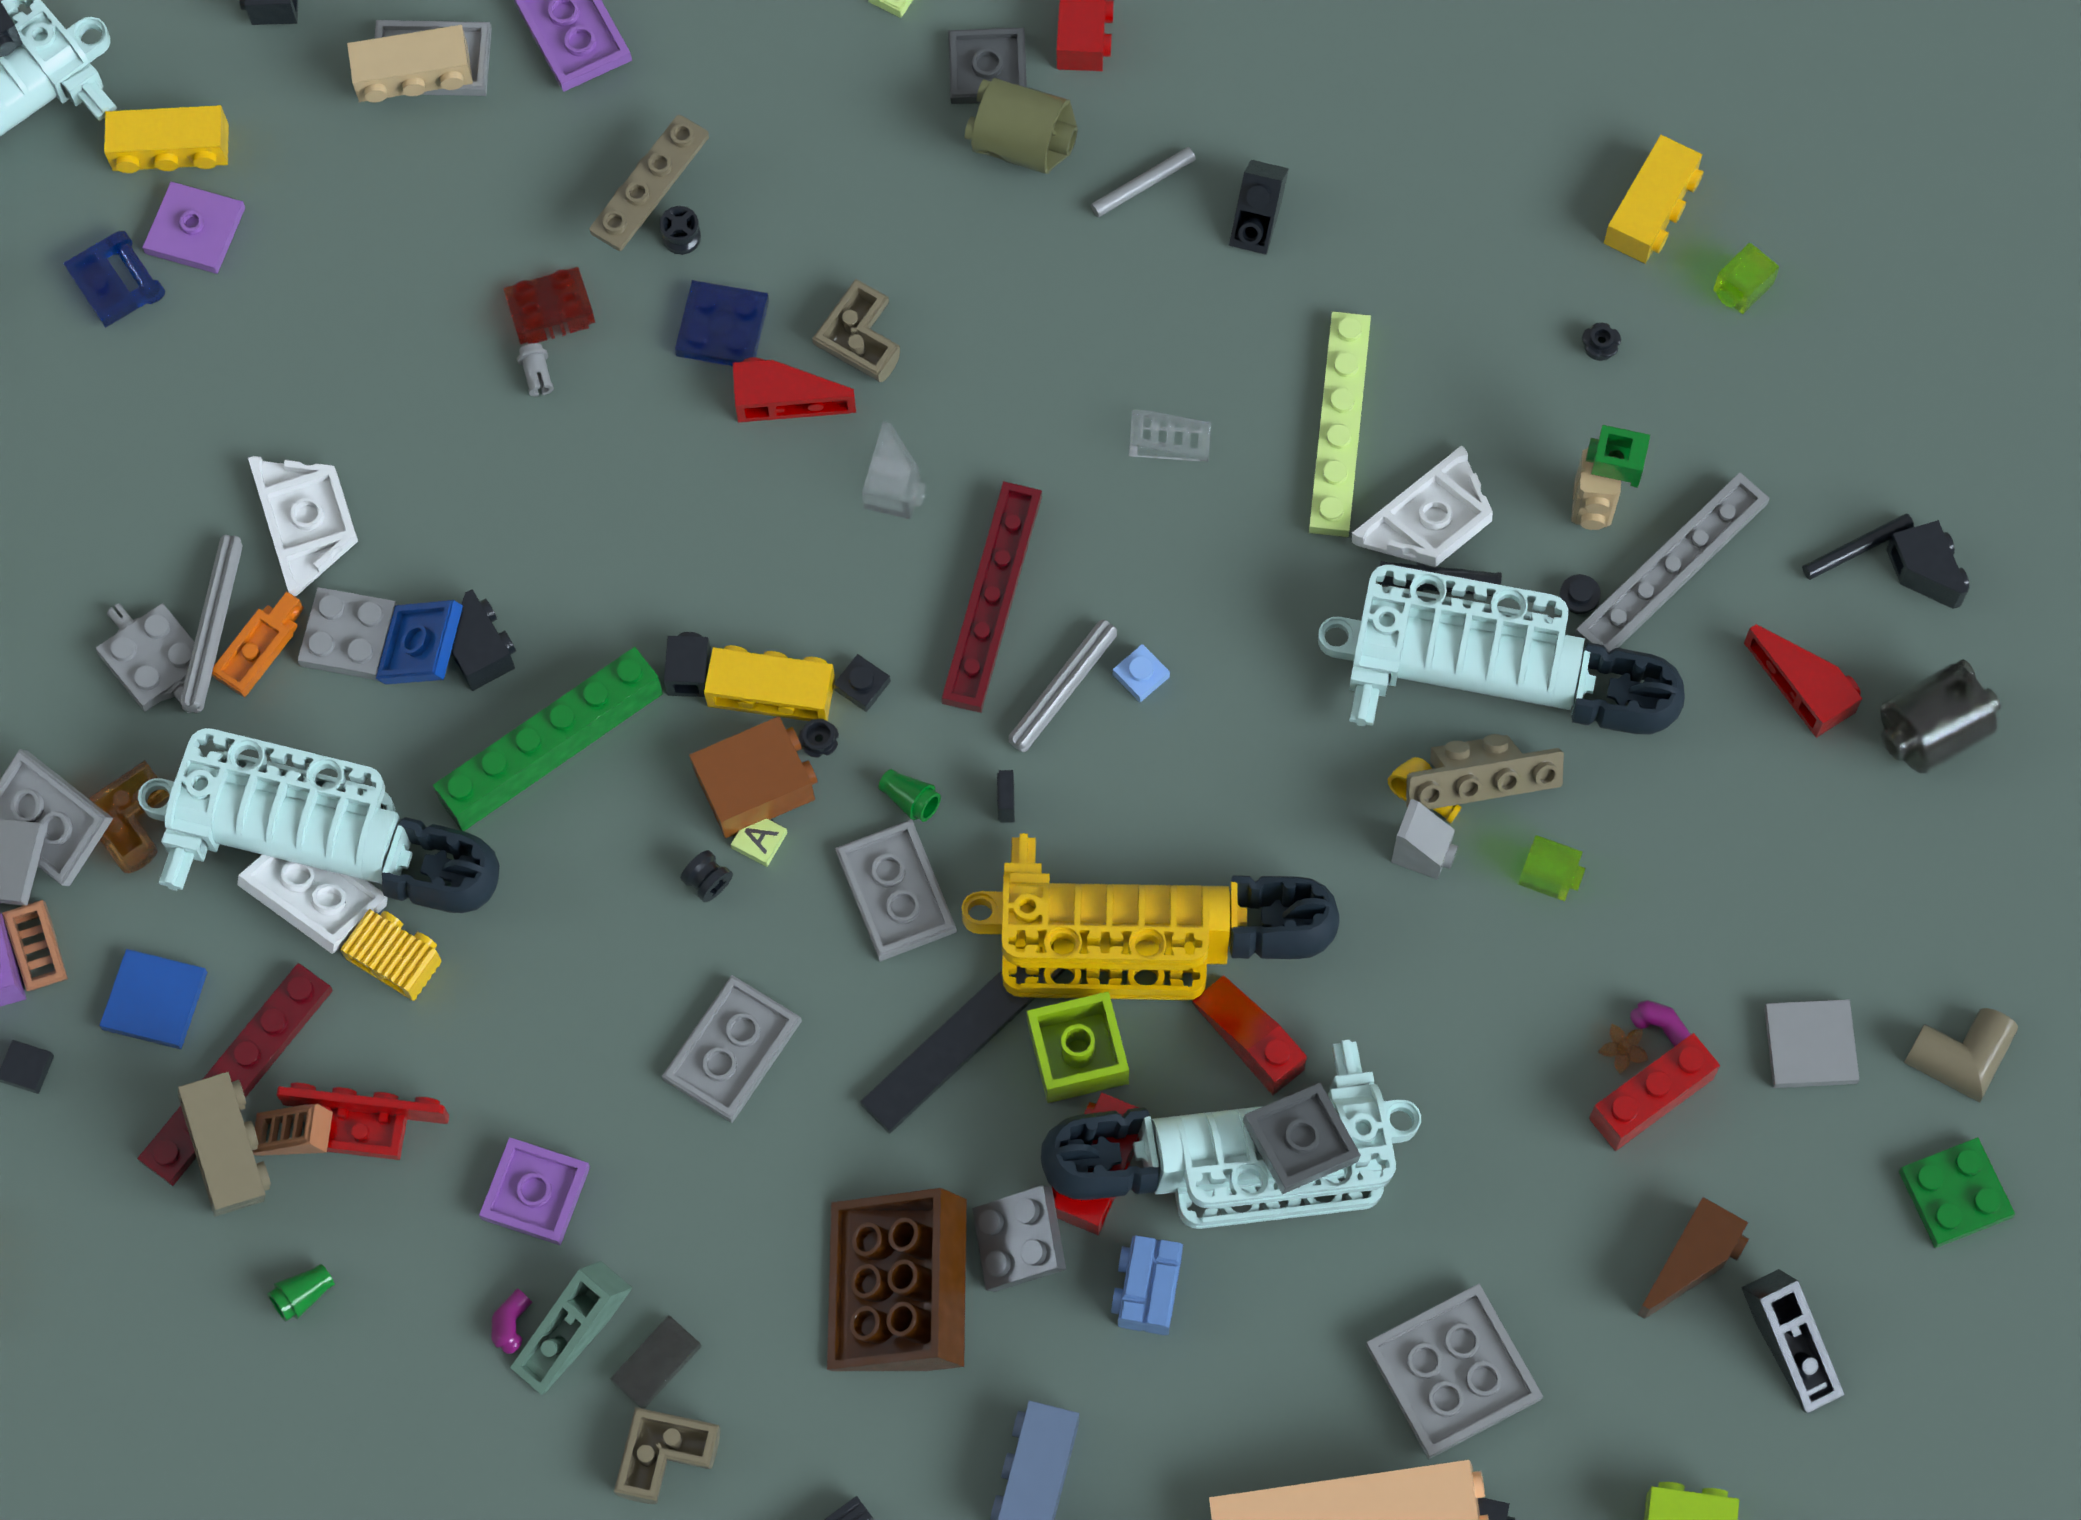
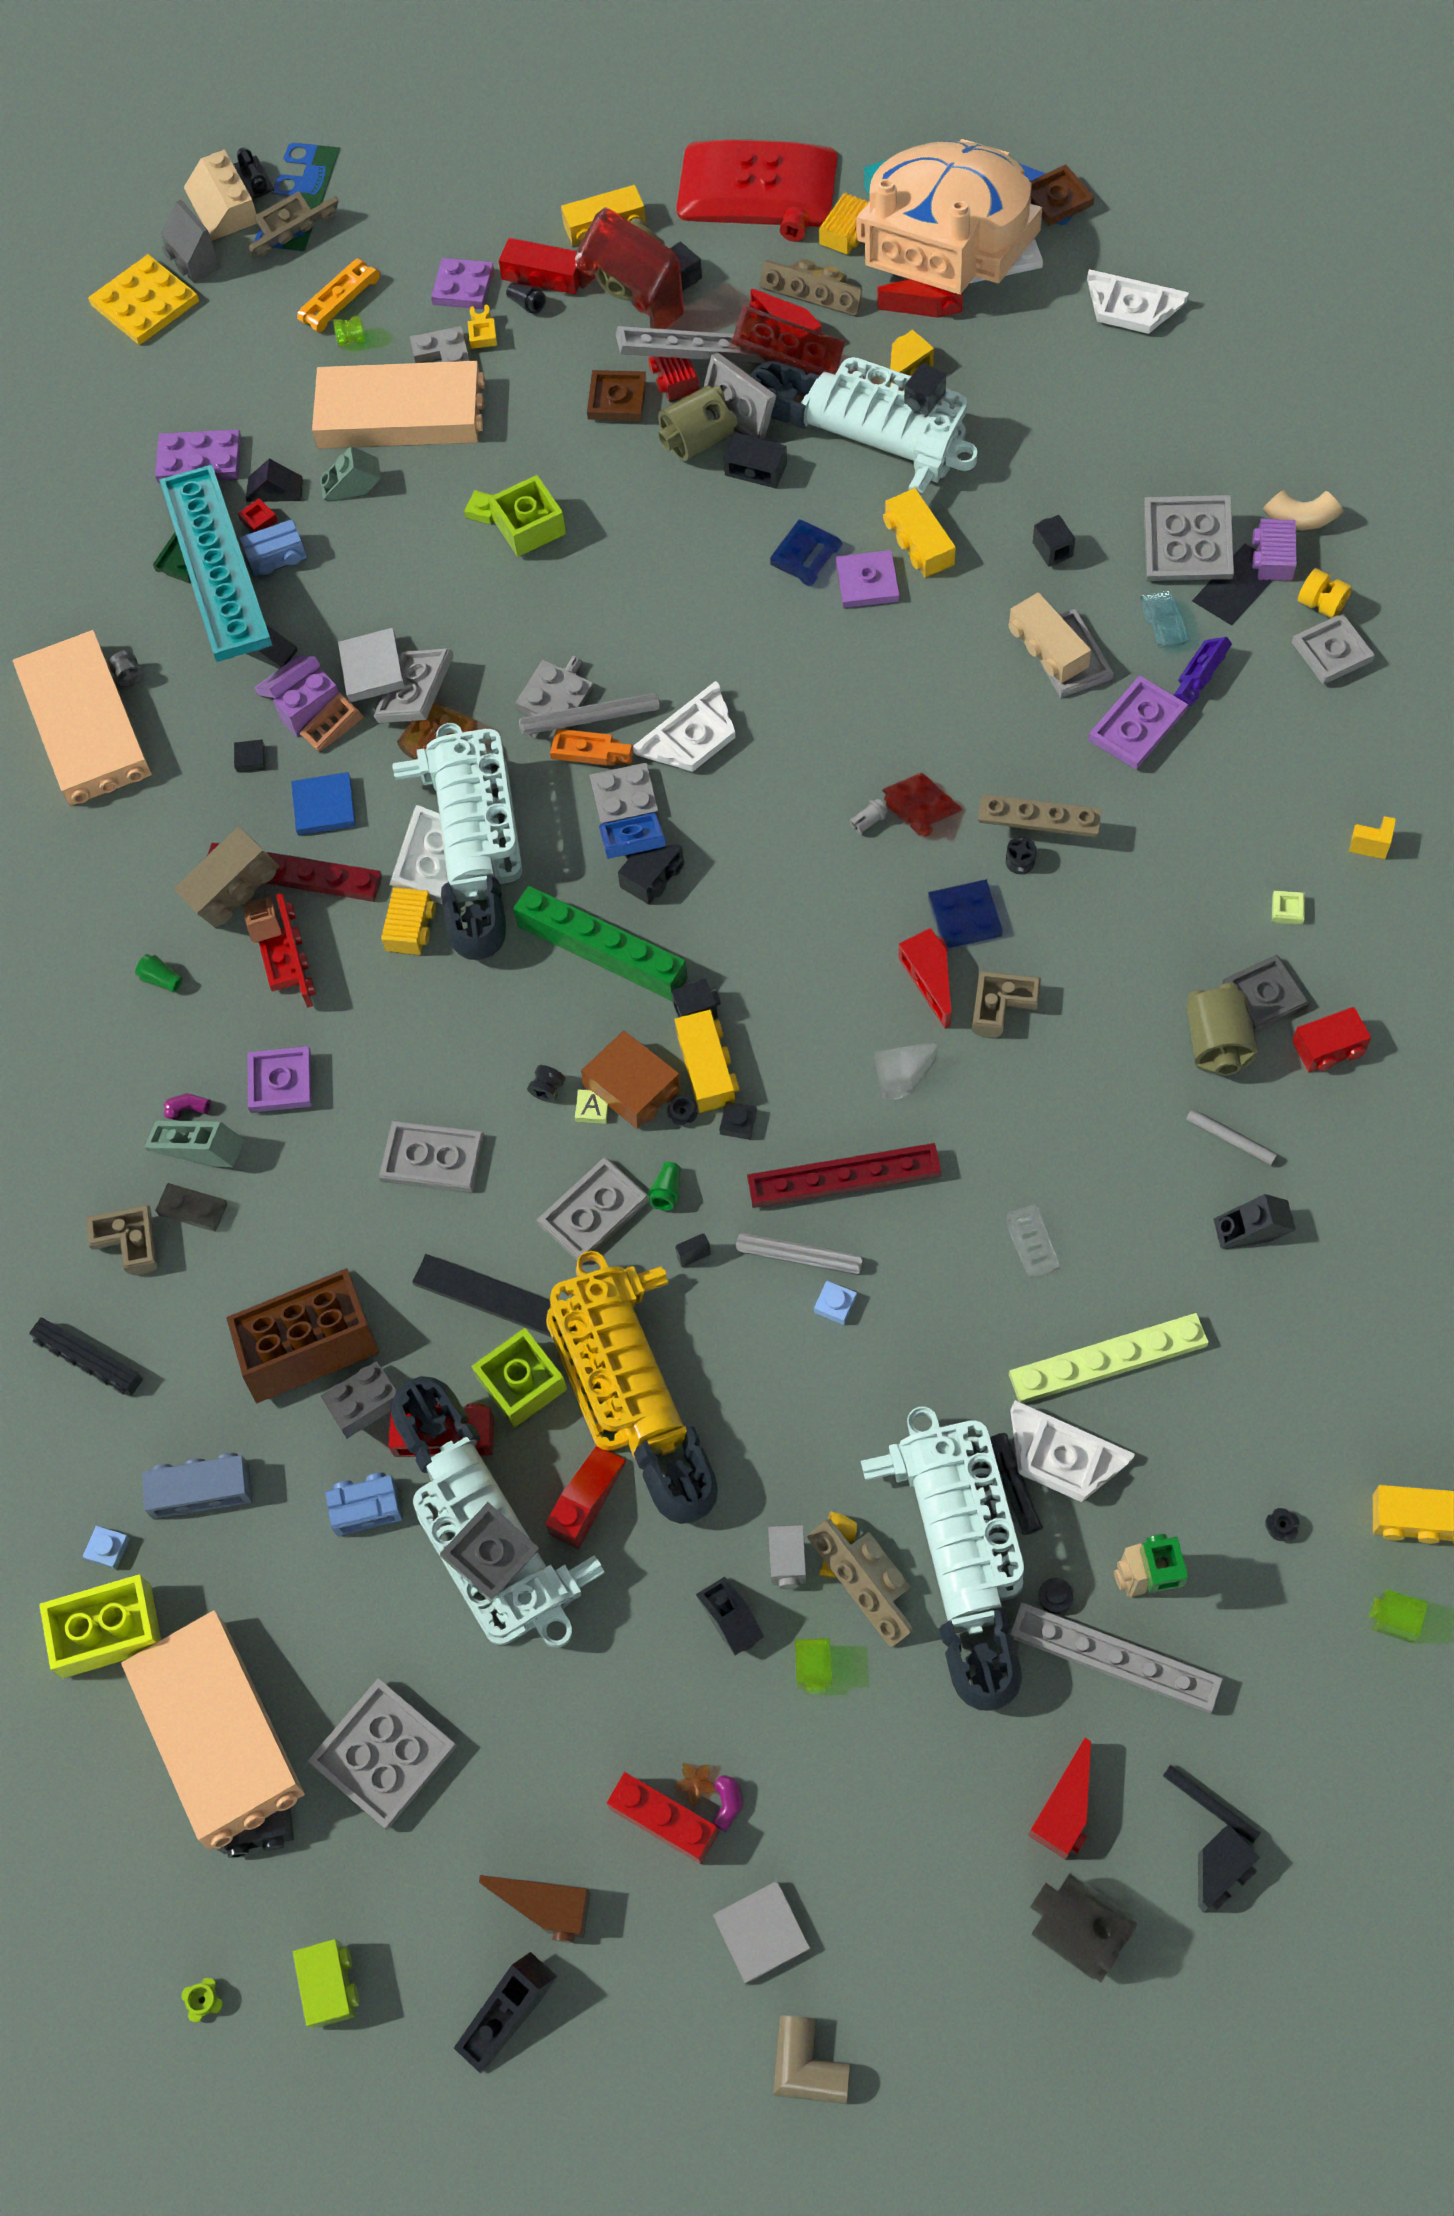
camera: 70 degrees right, 5 degrees down
(1459, 932) = (730, 1616): none -> black slope
(1956, 1192) = (685, 2104): green plate -> none

